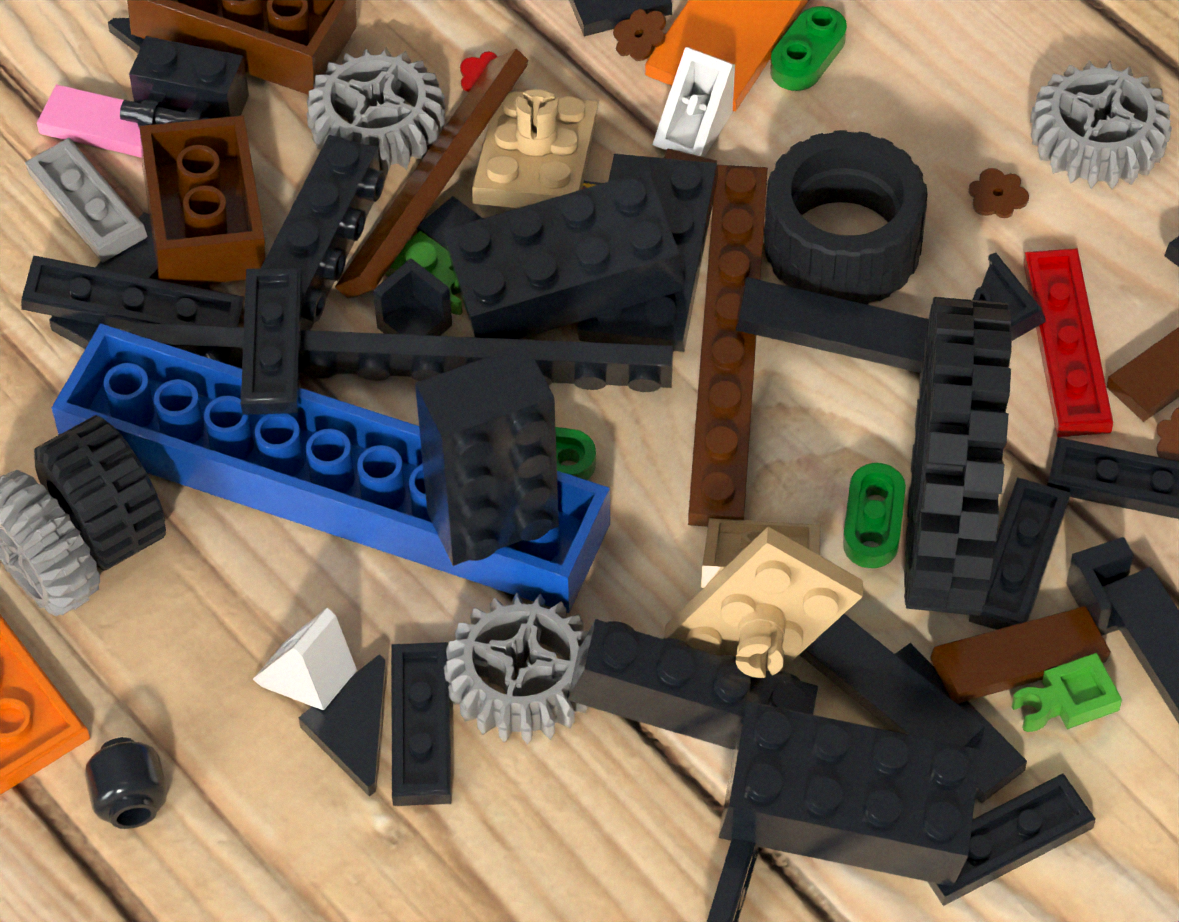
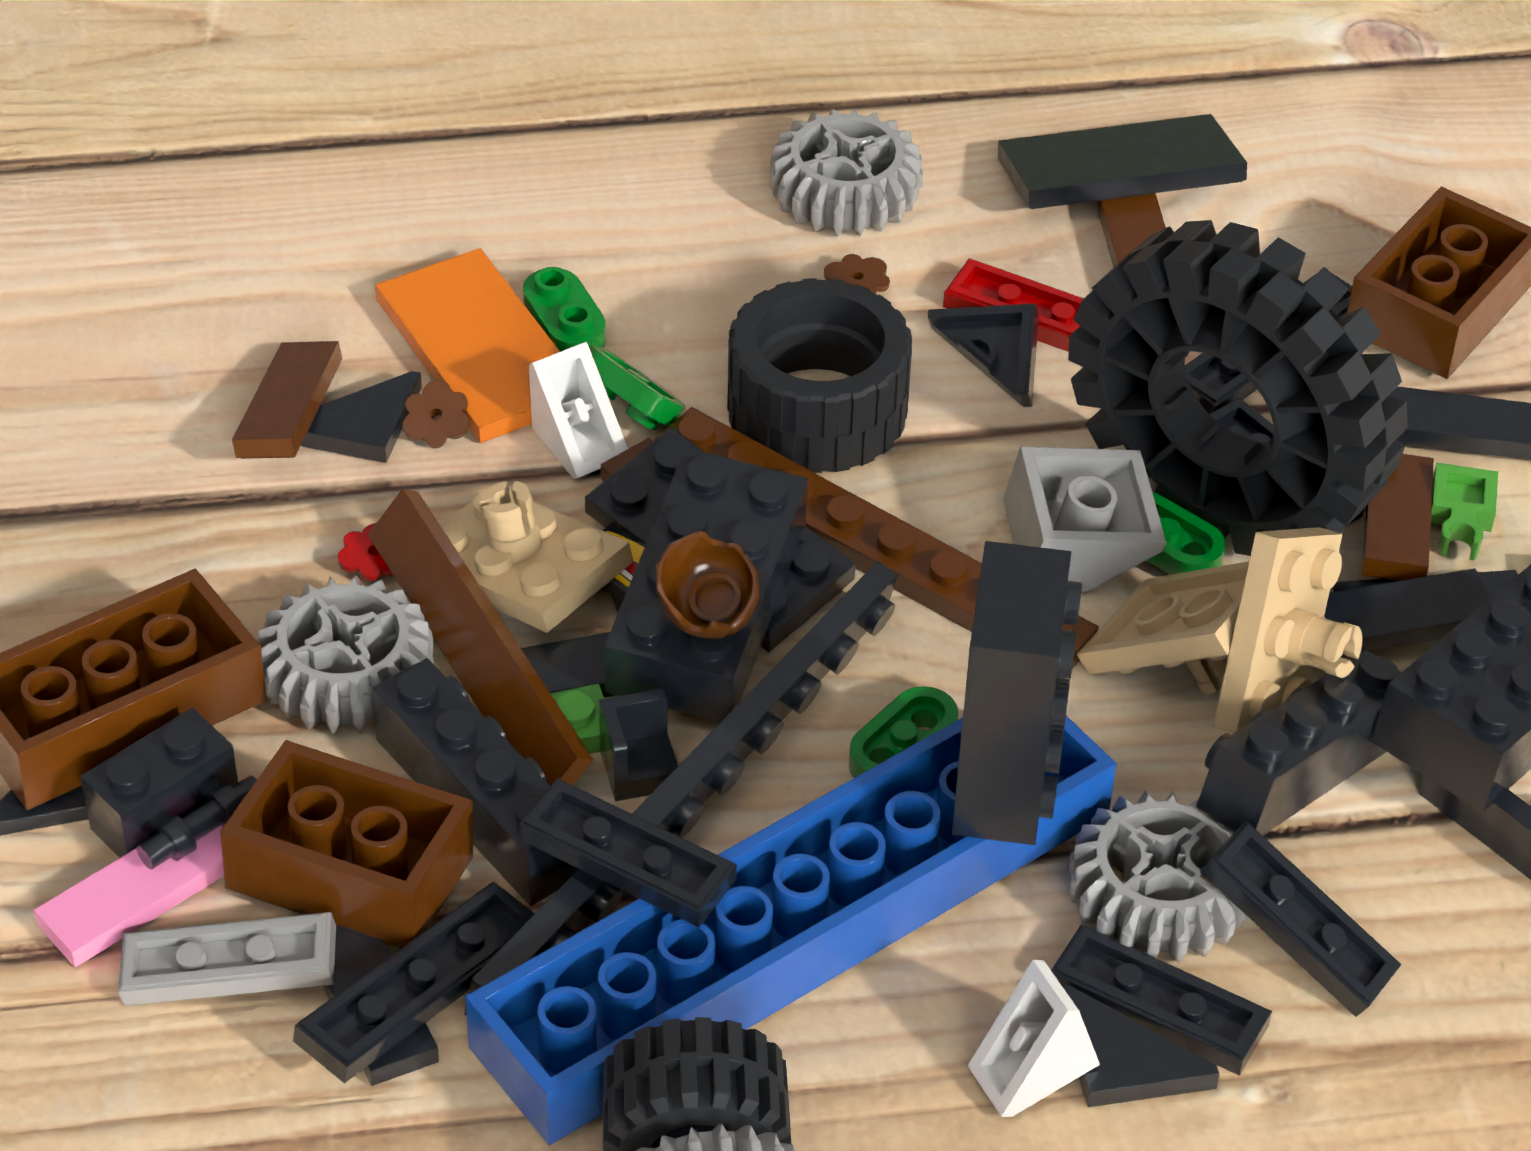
camera: 60 degrees left, 10 degrees down
(501, 245) = (707, 586): none -> reddish brown hair
(531, 767) = (1301, 918): none -> black tile
(756, 122) = (648, 401): none -> green plate
(828, 444) = (1087, 505): none -> light grey slope
(832, 324) = (935, 446): black tile -> none

